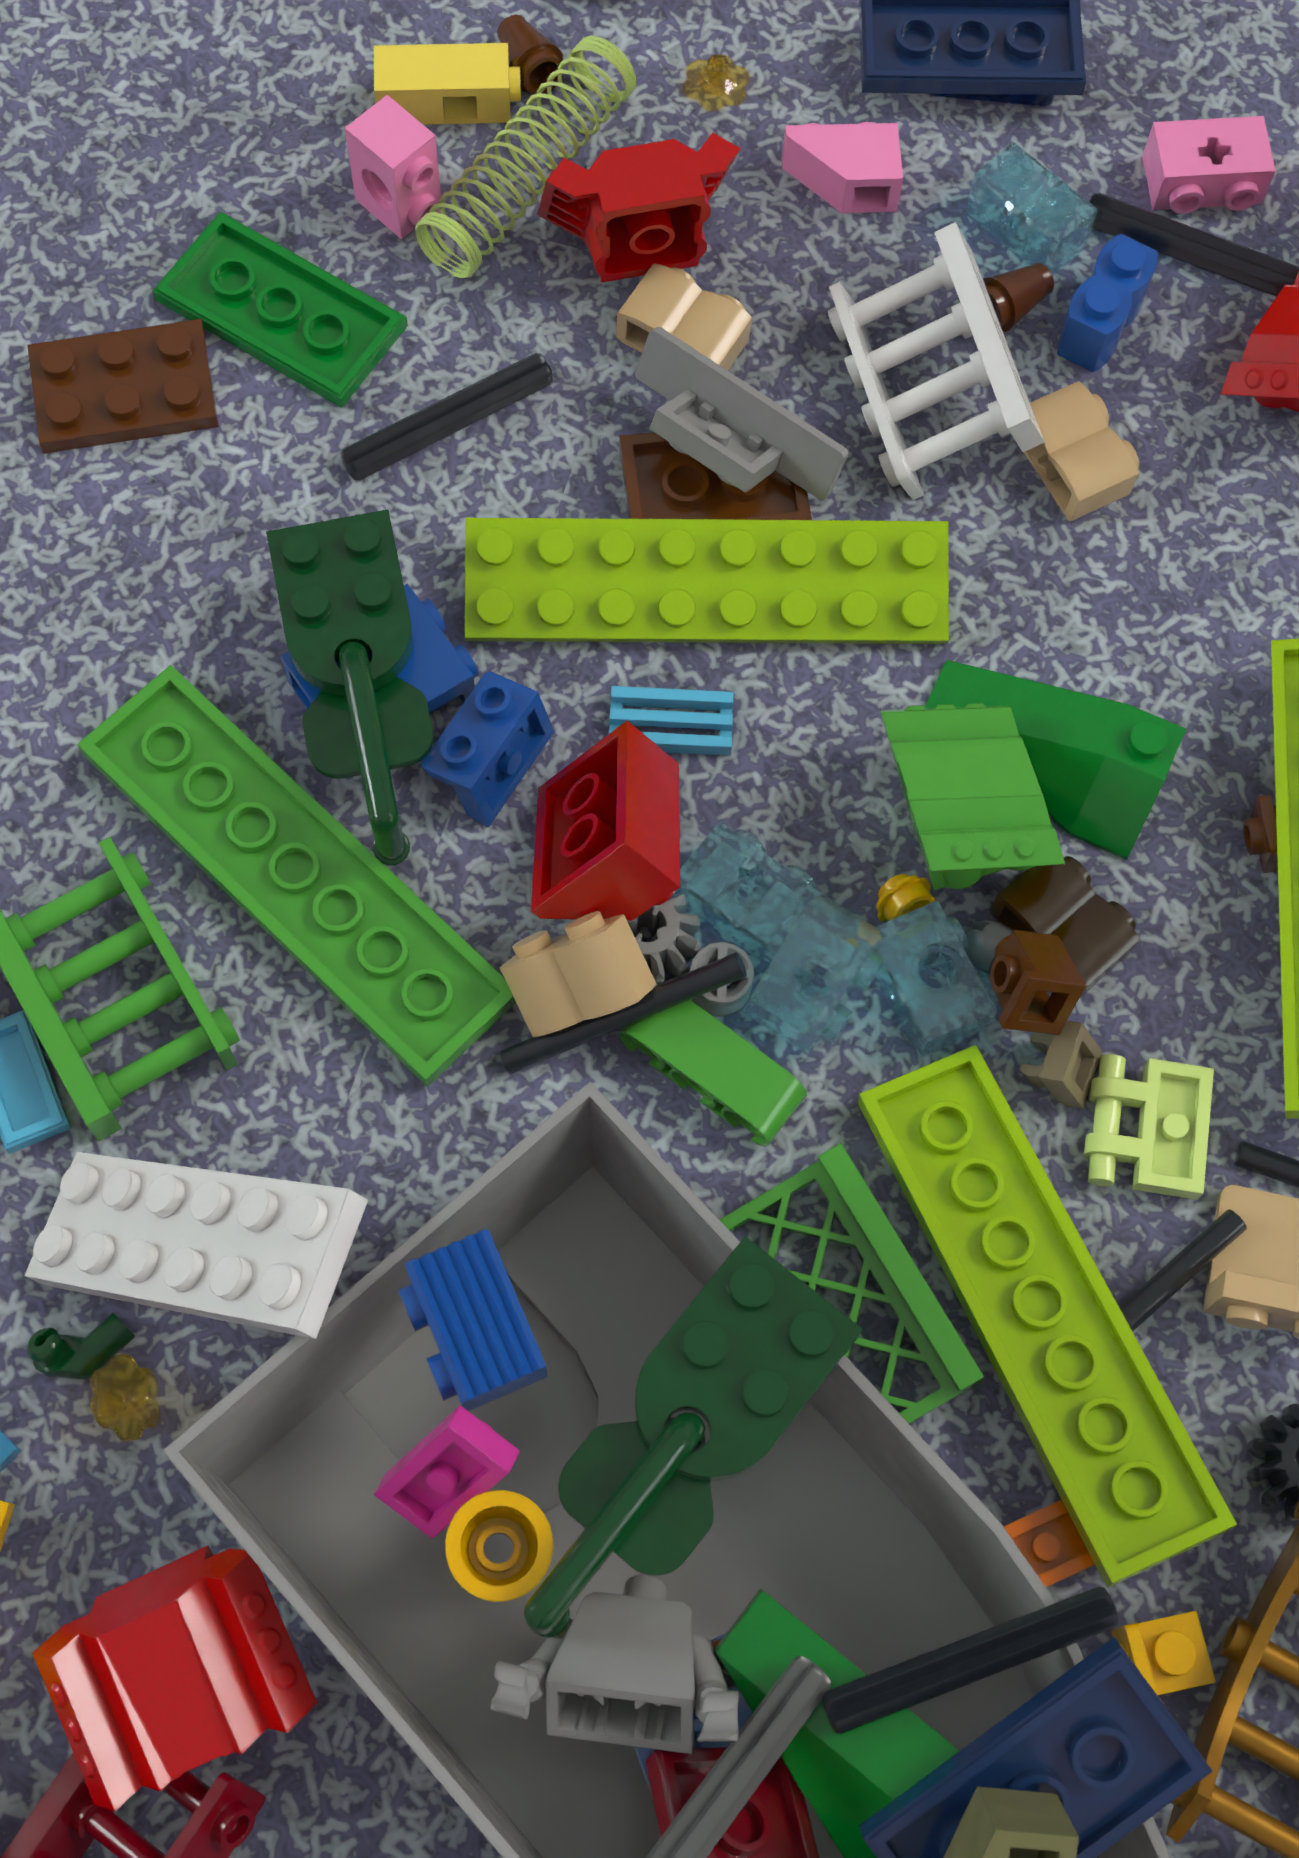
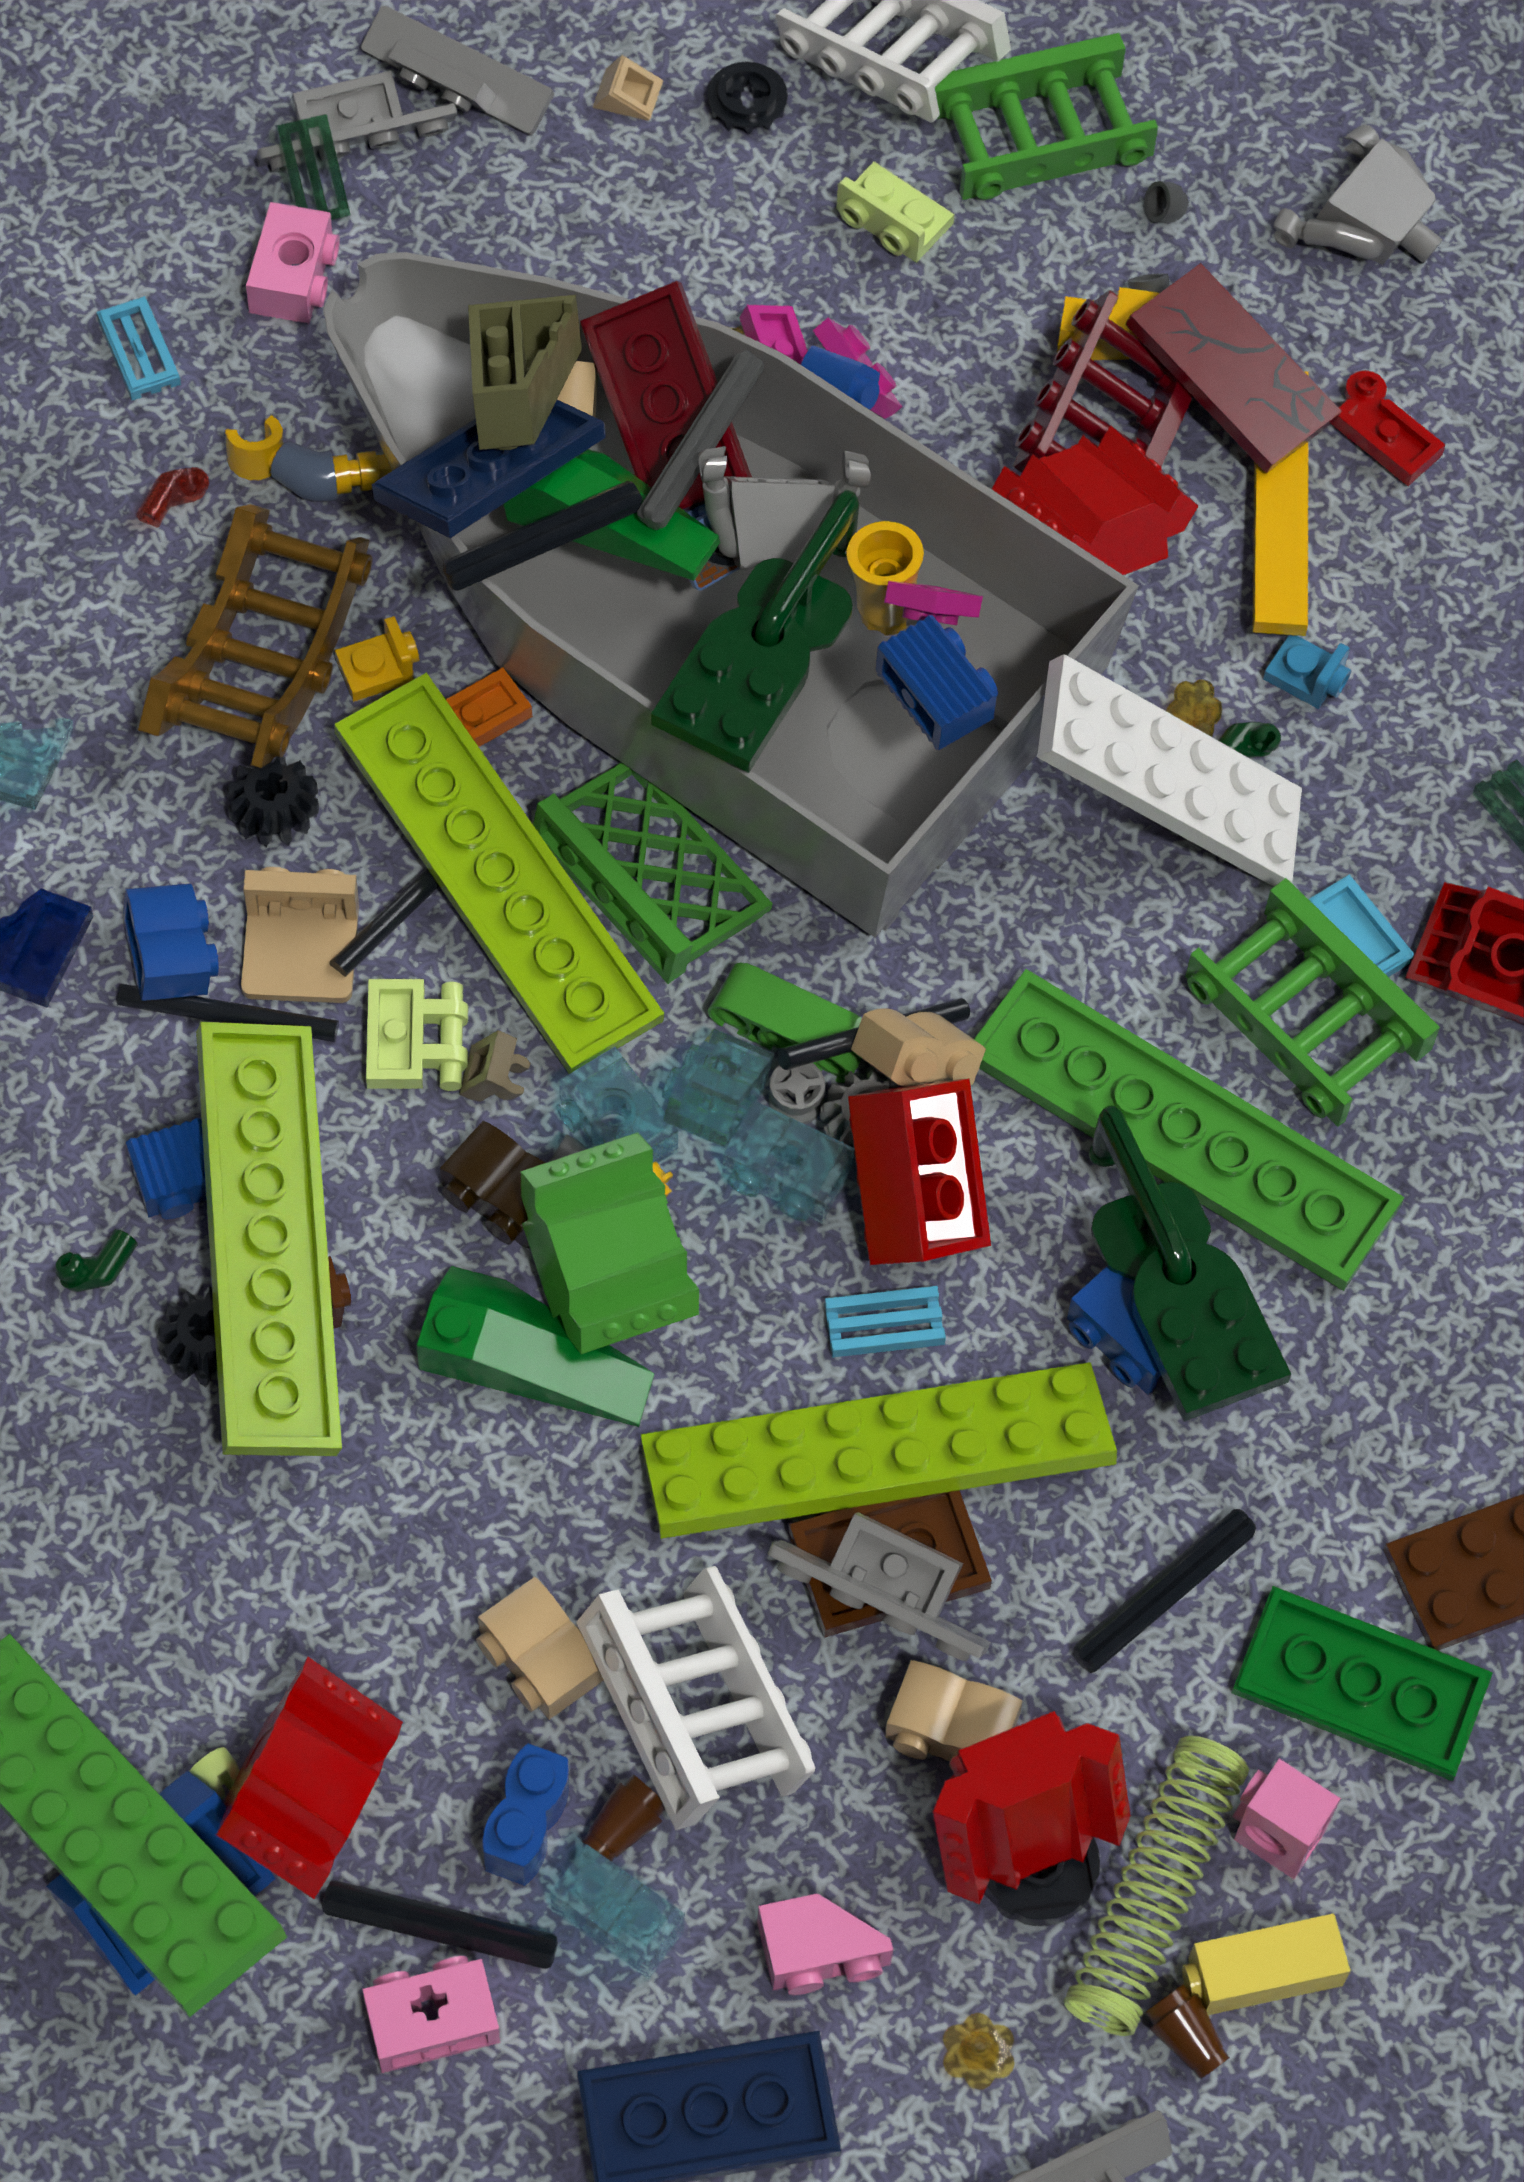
camera: 170 degrees right, 5 degrees down
(490, 745) = (1044, 1248): blue bracket -> none
(1023, 972) = (533, 1102): reddish brown brick -> none

